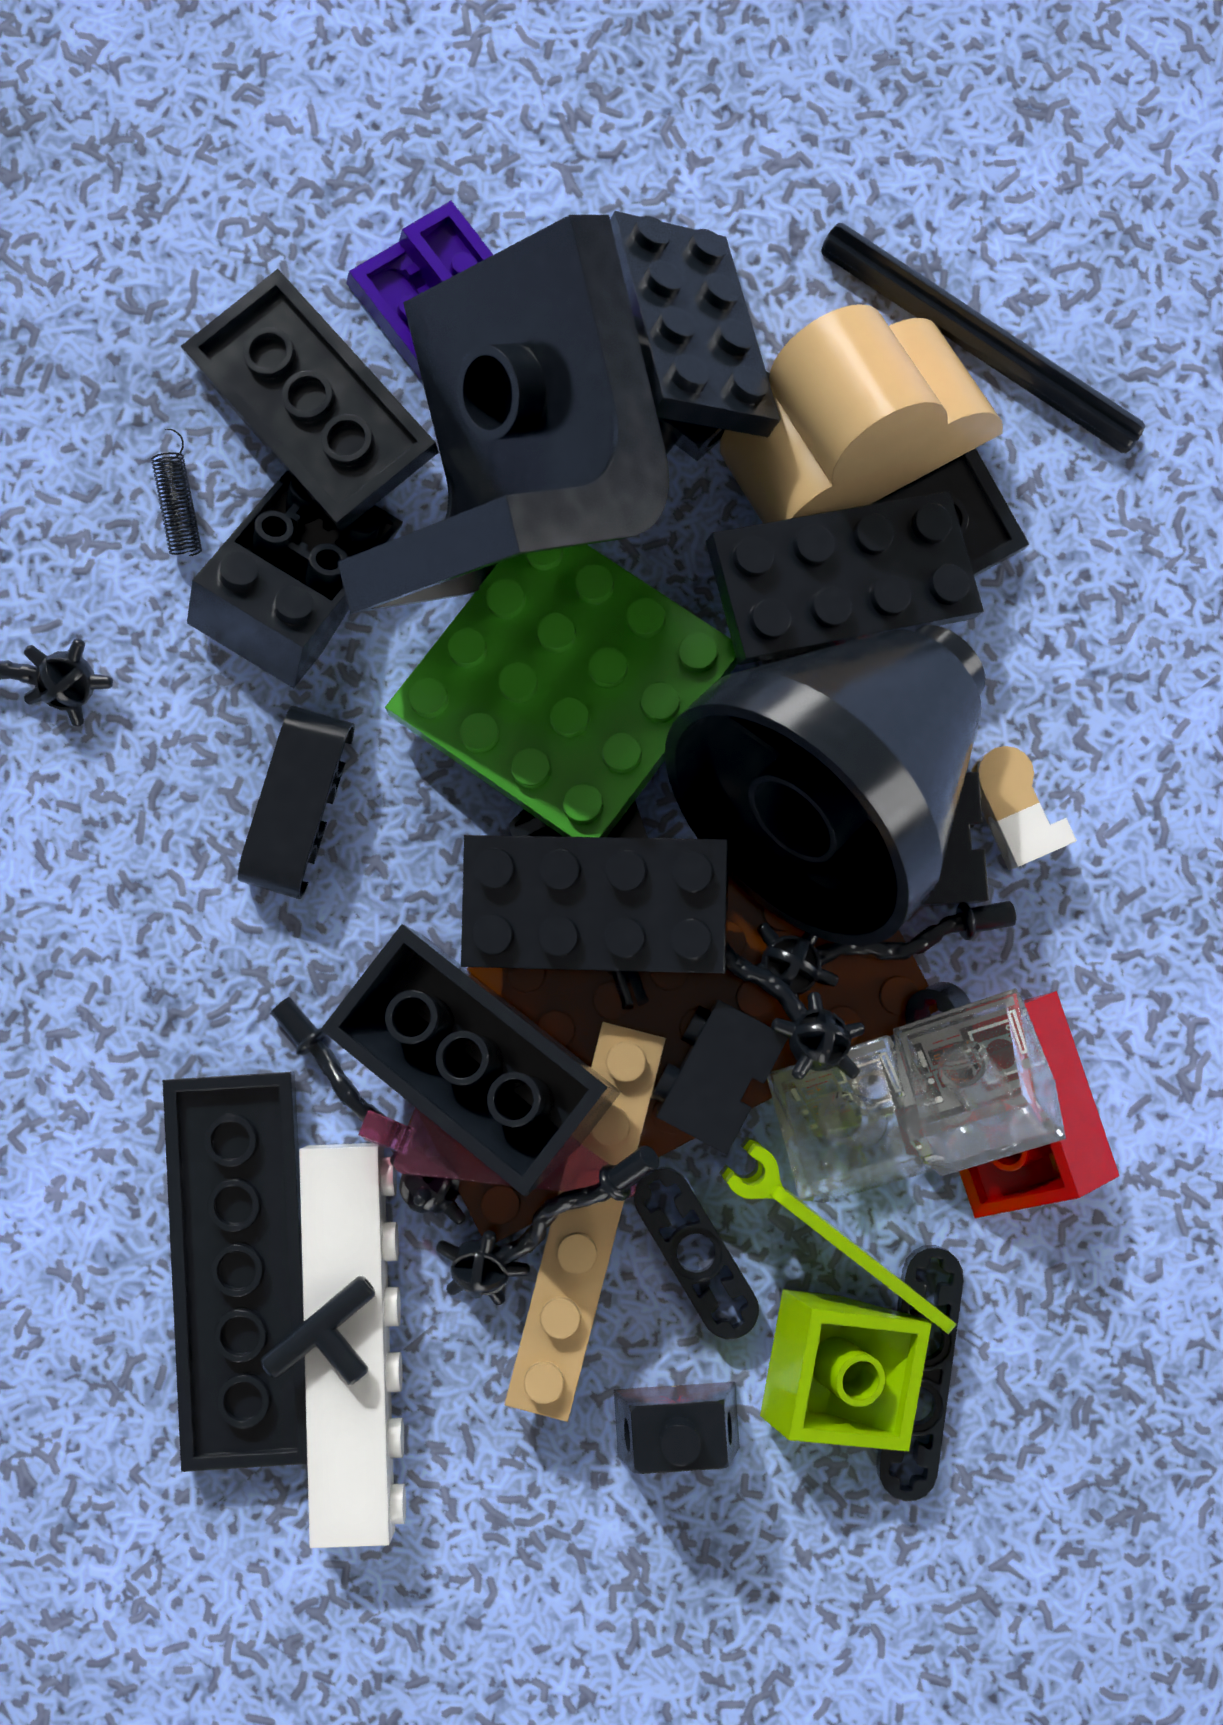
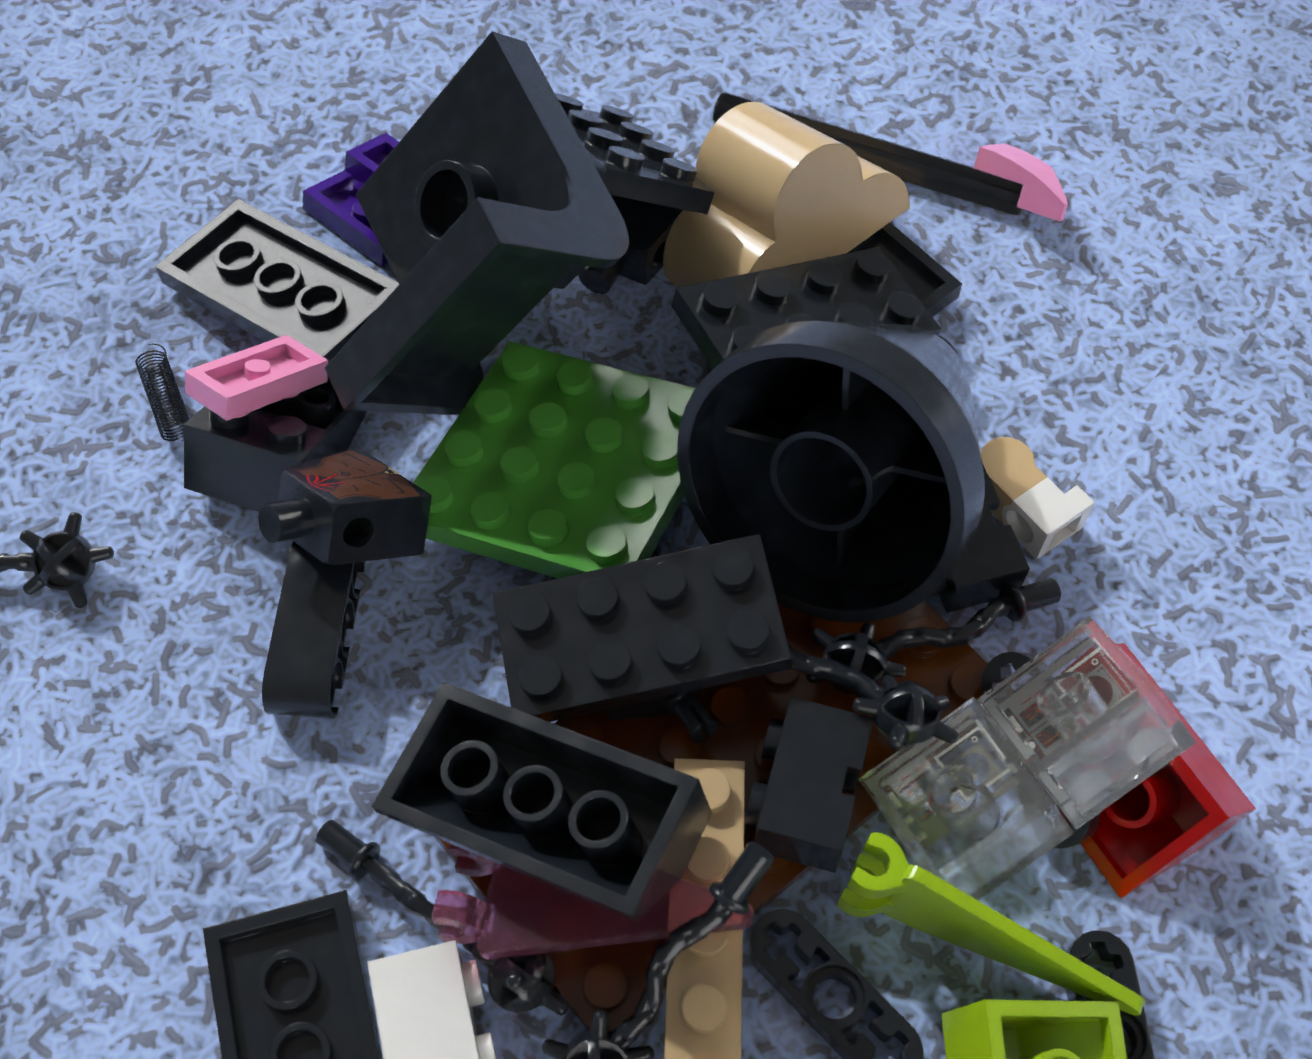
camera: 15 degrees left, 25 degrees down
(270, 540) = (255, 377): none -> bright pink plate
(341, 701) = (348, 510): none -> black torso
(1147, 411) = (1040, 188): none -> bright pink slope

